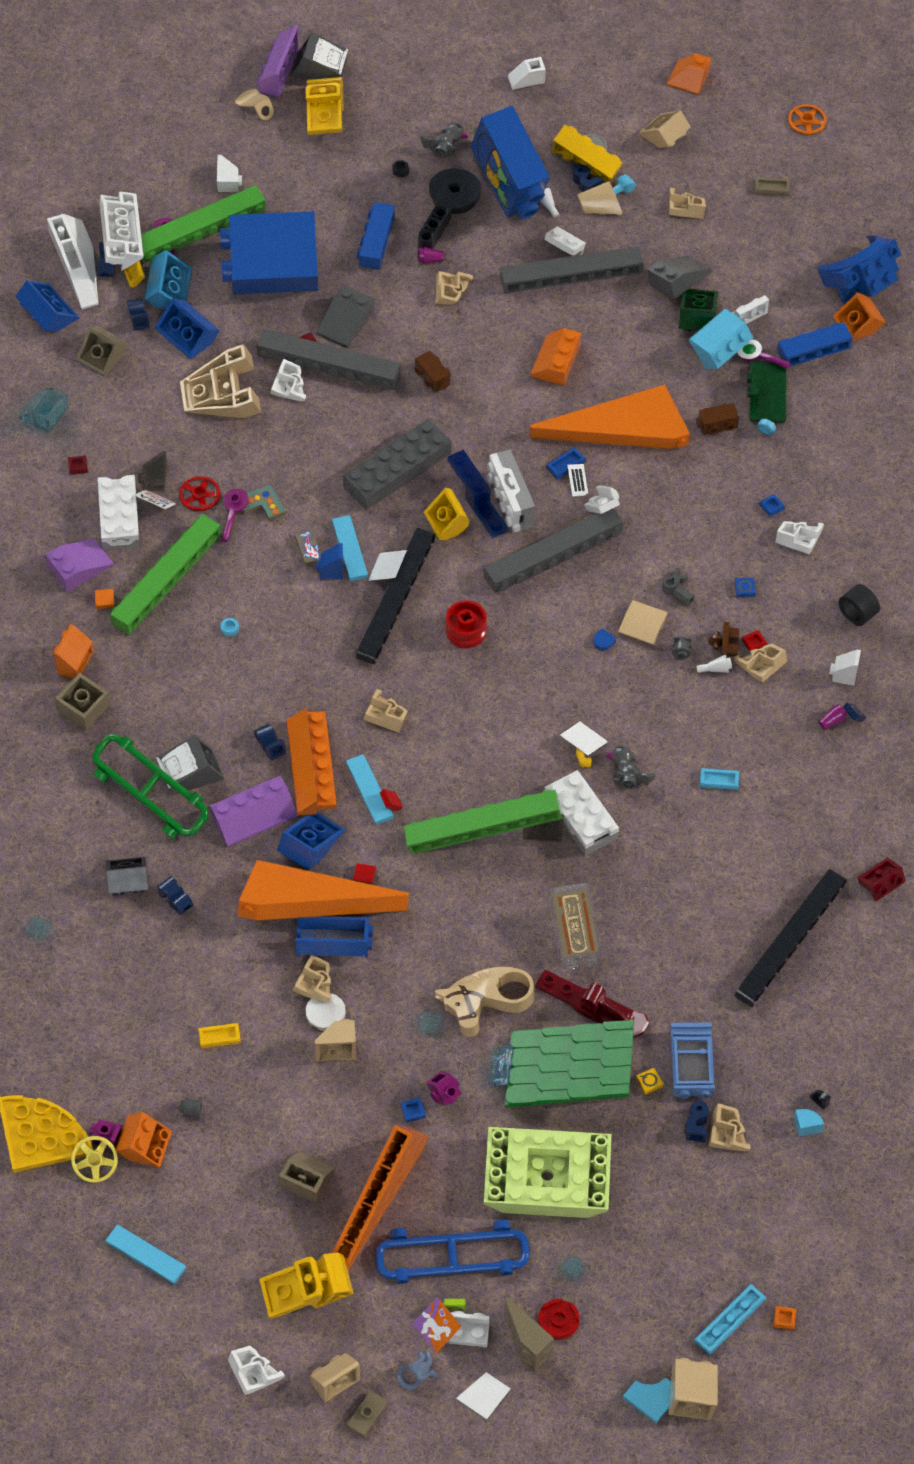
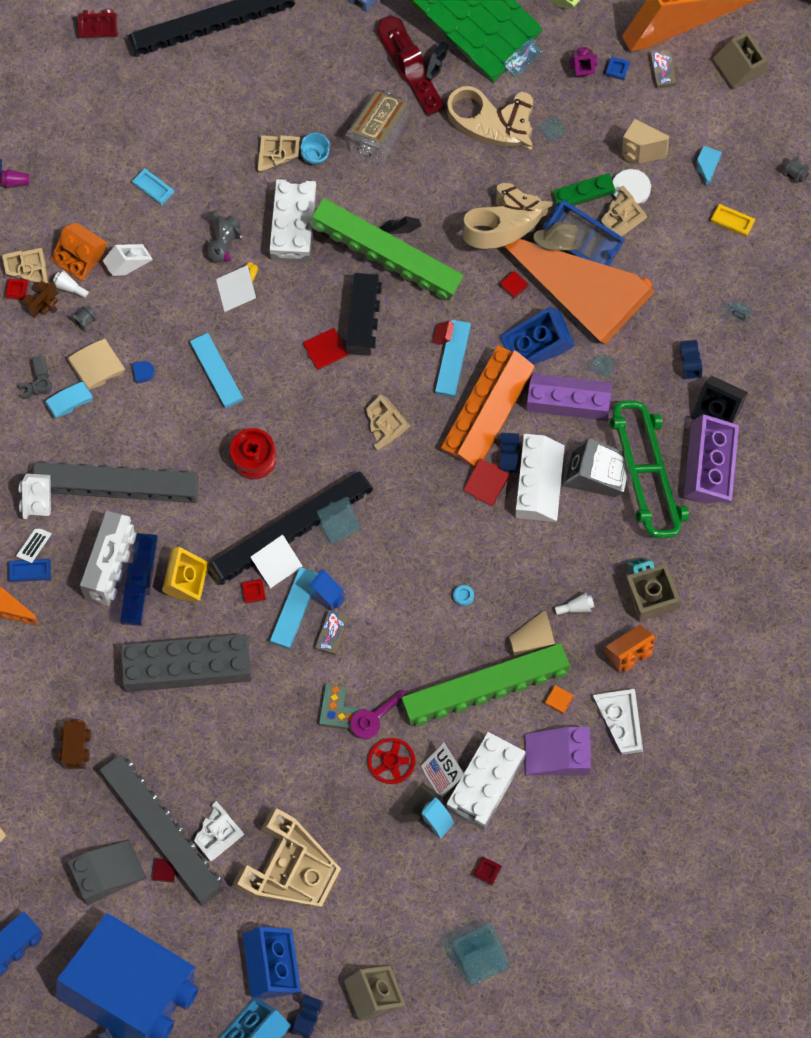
camera: 140 degrees left, 10 degrees up
(47, 611) = (622, 718): none -> white wing
(102, 824) = (711, 460): none -> medium lavender slope
(103, 714) = (639, 564): none -> teal tile
(133, 669) = (580, 604): none -> white cone
(136, 462) = (437, 817): none -> medium azure slope
(155, 626) = (532, 636): none -> tan slope
(159, 957) = (740, 311): none -> clear light blue tile
(231, 736) = (540, 478): none -> white slope
(244, 854) = (603, 365): none -> clear light blue tile
(271, 711) = (486, 482): none -> red piece
(274, 1070) = (707, 163): none -> medium azure slope
(351, 913) = (559, 237): none -> dark tan piece
(361, 982) = (586, 190): none -> green plate
(363, 617) = (339, 520): none -> clear light blue piece
(371, 1133) = (663, 68): none -> tile
(389, 541) = (253, 591): none -> red tile
(396, 914) = (510, 221): none -> tan animal
(465, 773) = (363, 313): none -> black brick
(476, 739) = (325, 348): none -> red piece
(491, 860) = (405, 225): none -> black slope
(548, 673) = (216, 370): none -> medium azure tile
(570, 1008) = (436, 60): none -> black slope
(613, 877) = (315, 143): none -> medium azure hair
(637, 868) = (283, 147): none -> tan slope
(640, 584) = (68, 399): none -> medium azure slope
(687, 709) = (126, 258): none -> white slope
(731, 692) = (78, 250): none -> orange slope

